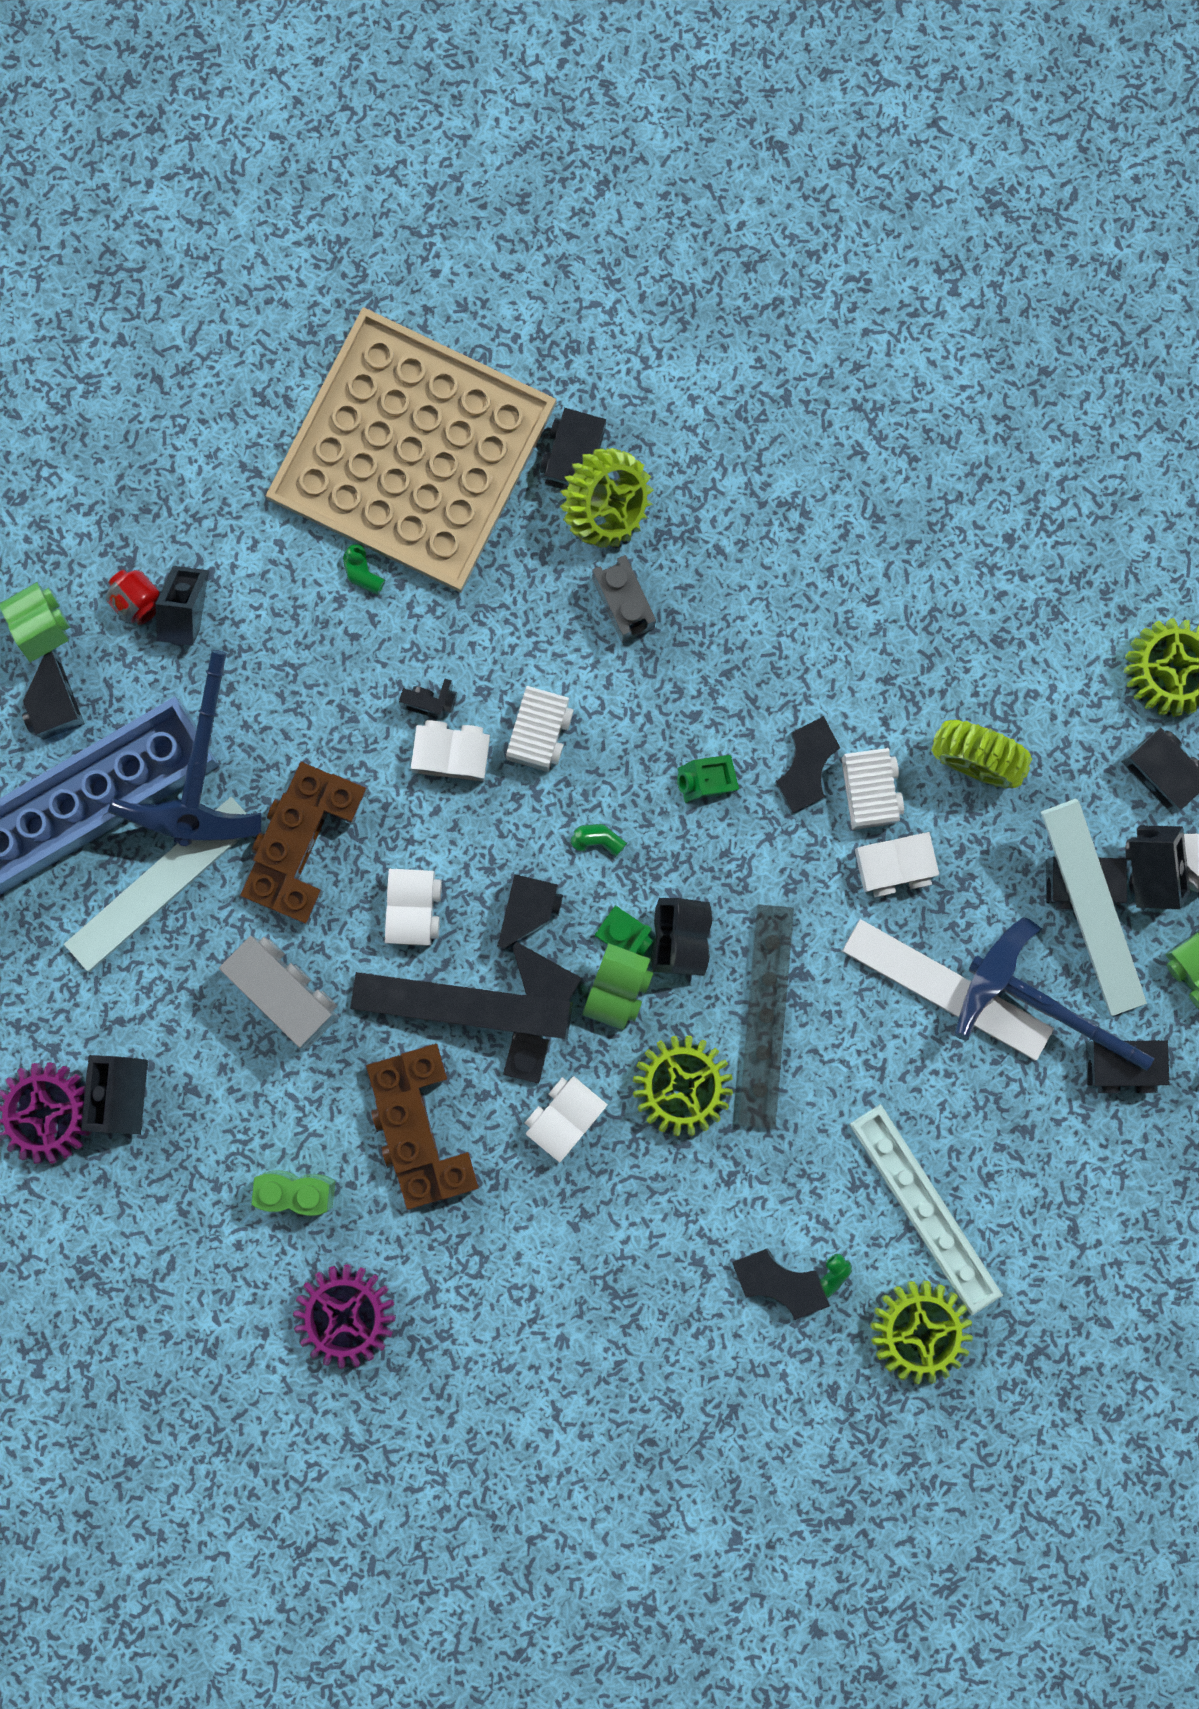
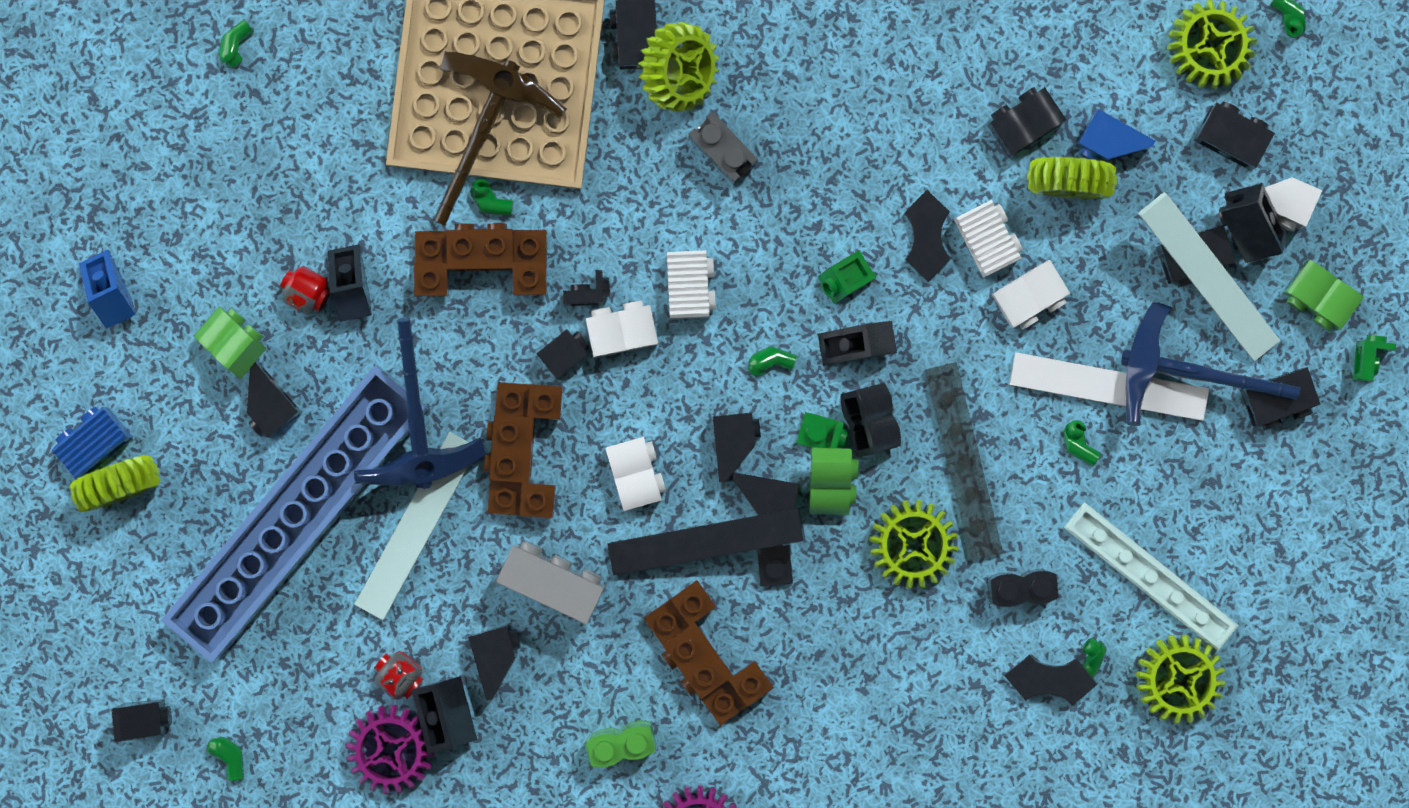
camera: 10 degrees left, 5 degrees up
(82, 1035) = (398, 675): none -> head
(151, 318) = (230, 44): none -> green arm
(191, 1051) = (494, 656): none -> black slope
(331, 618) = (480, 250): none -> reddish brown bracket
(381, 755) = (564, 353): none -> black brick
(417, 453) = (503, 83): none -> dark brown piece
(565, 1118) = (825, 604): white brick -> none
(695, 850) = (857, 342): none -> black slope
(774, 1171) = (1032, 586): none -> black brick
(892, 1039) = (1076, 443): none -> green arm
(951, 681) = (1025, 122): none -> black brick
(1038, 728) = (1110, 139): none -> blue slope

